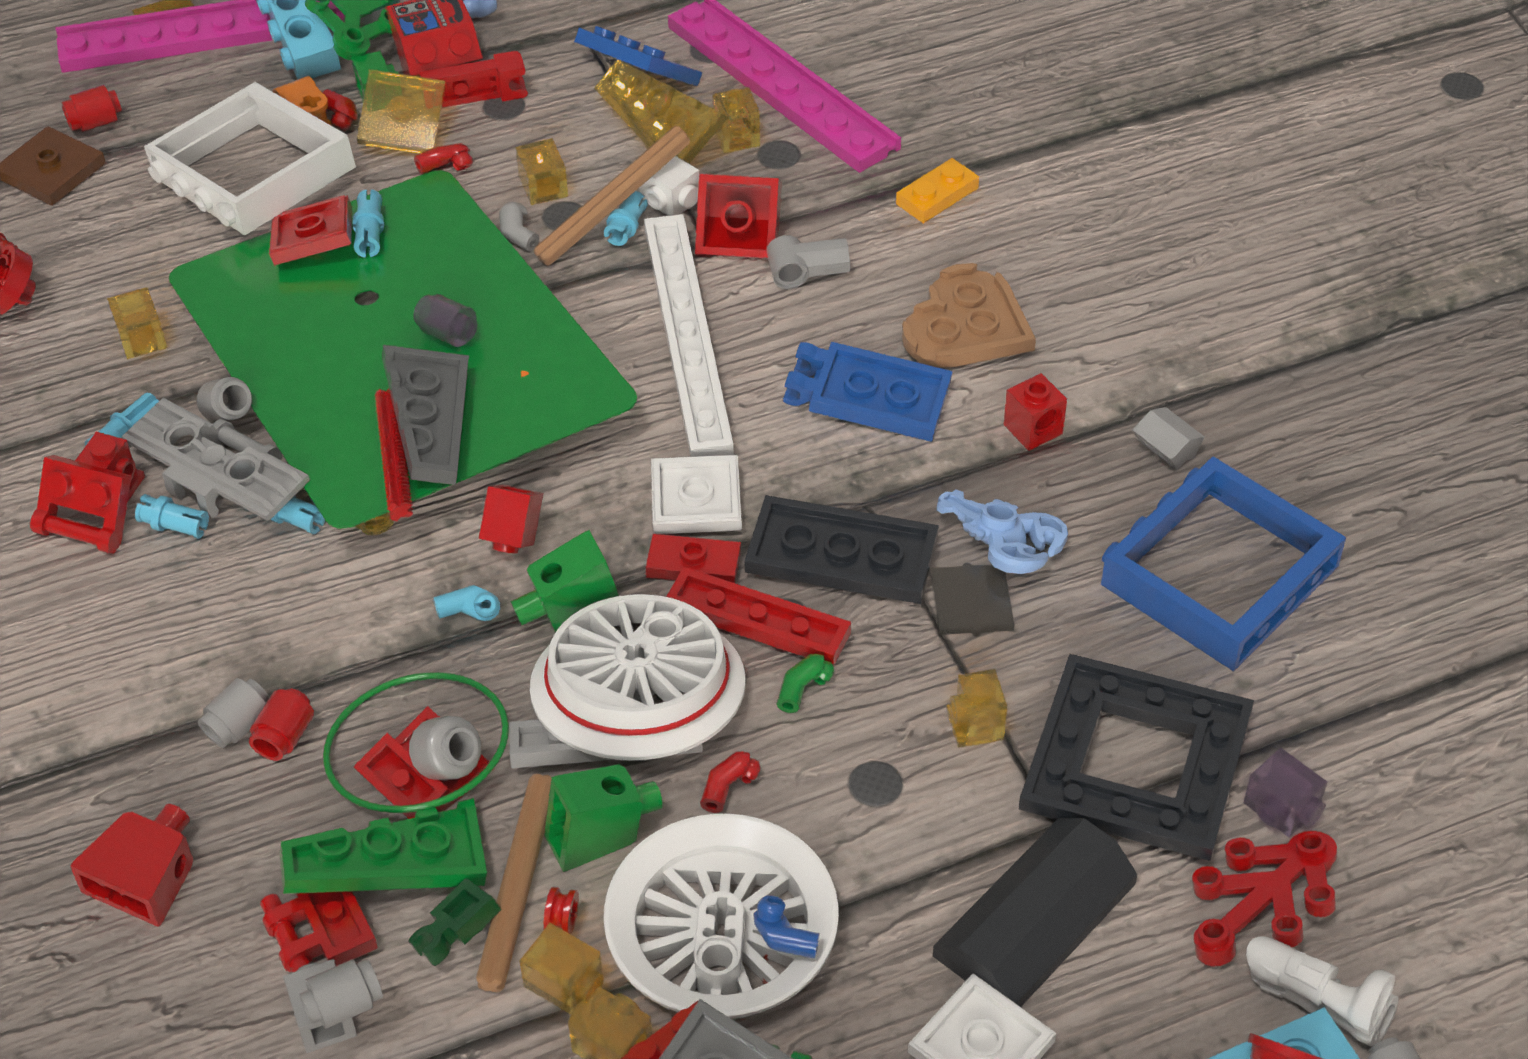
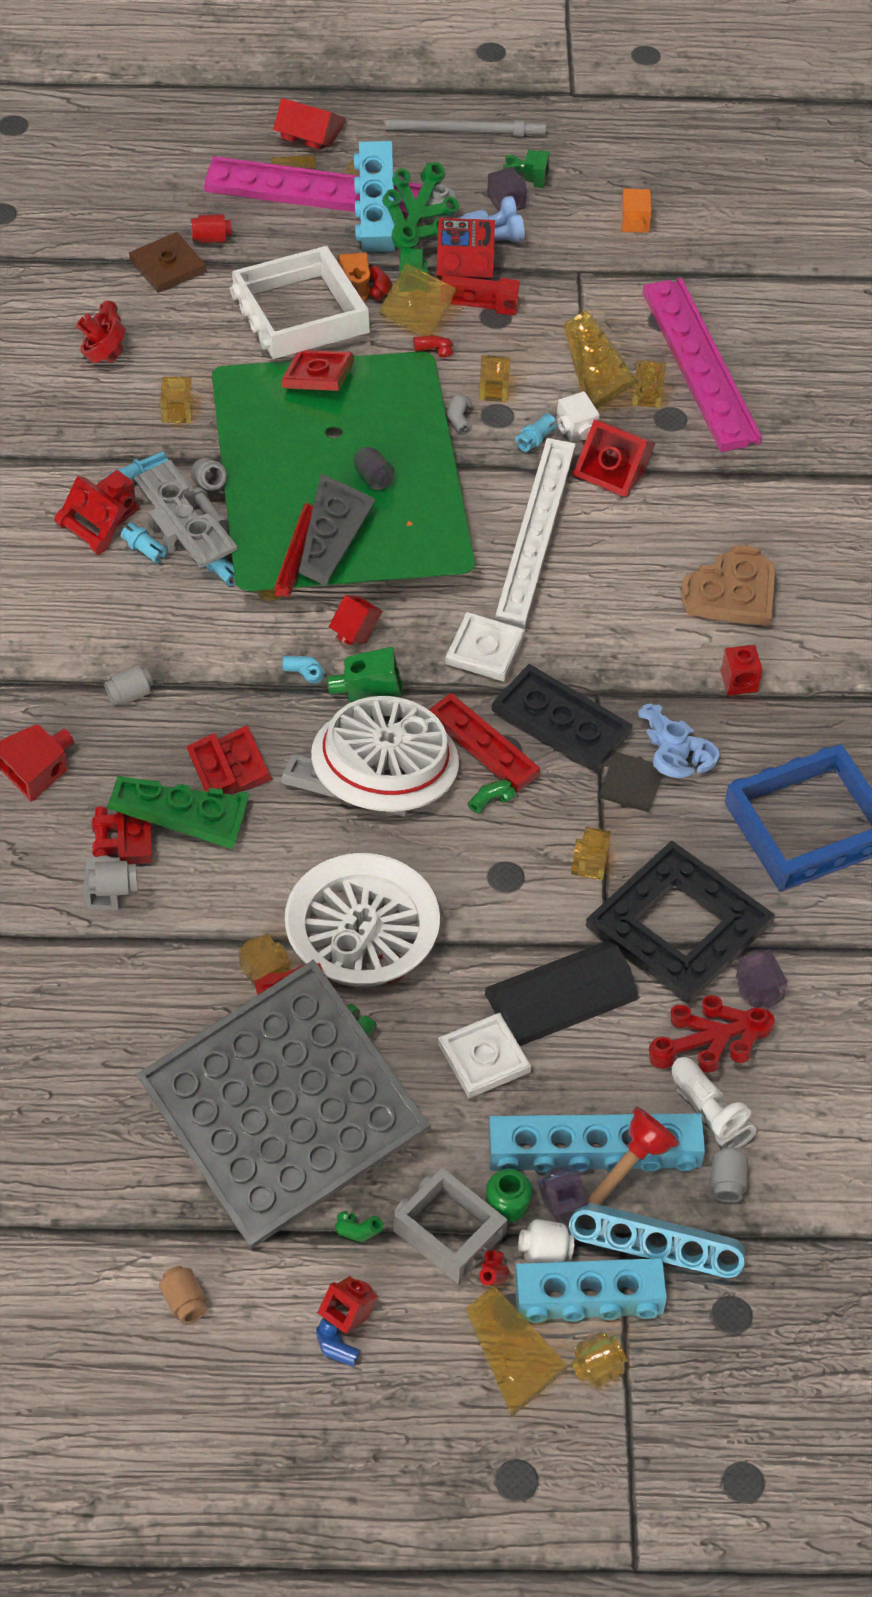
camera: 20 degrees right, 5 degrees up
(281, 724) = (153, 703): red brick -> none
(368, 223) = (358, 377): medium azure pin -> none
(430, 804) = (237, 786): green piece -> none
(445, 748) = (243, 755): light grey head -> none
(456, 918) = (205, 862): dark green plate -> none
(515, 886) = (252, 854): medium nougat axle -> none
(561, 909) = (269, 881): red bush -> none
(561, 968) = (253, 914): clear yellow brick -> none
(595, 813) = (317, 829): green torso -> none
(611, 196) = (530, 413): medium nougat axle -> none
(628, 50) = (602, 311): blue wing -> none
(713, 557) = (470, 691): red plate -> none
(723, 775) = (410, 836): red arm -> none
(779, 933) = (389, 943): blue arm -> none
(796, 261) = (637, 504): light grey piece -> none
(869, 388) = (640, 614): blue tile -> none
(937, 190) = (767, 484): light orange plate -> none
(1168, 436) = (825, 719): light grey piece -> none

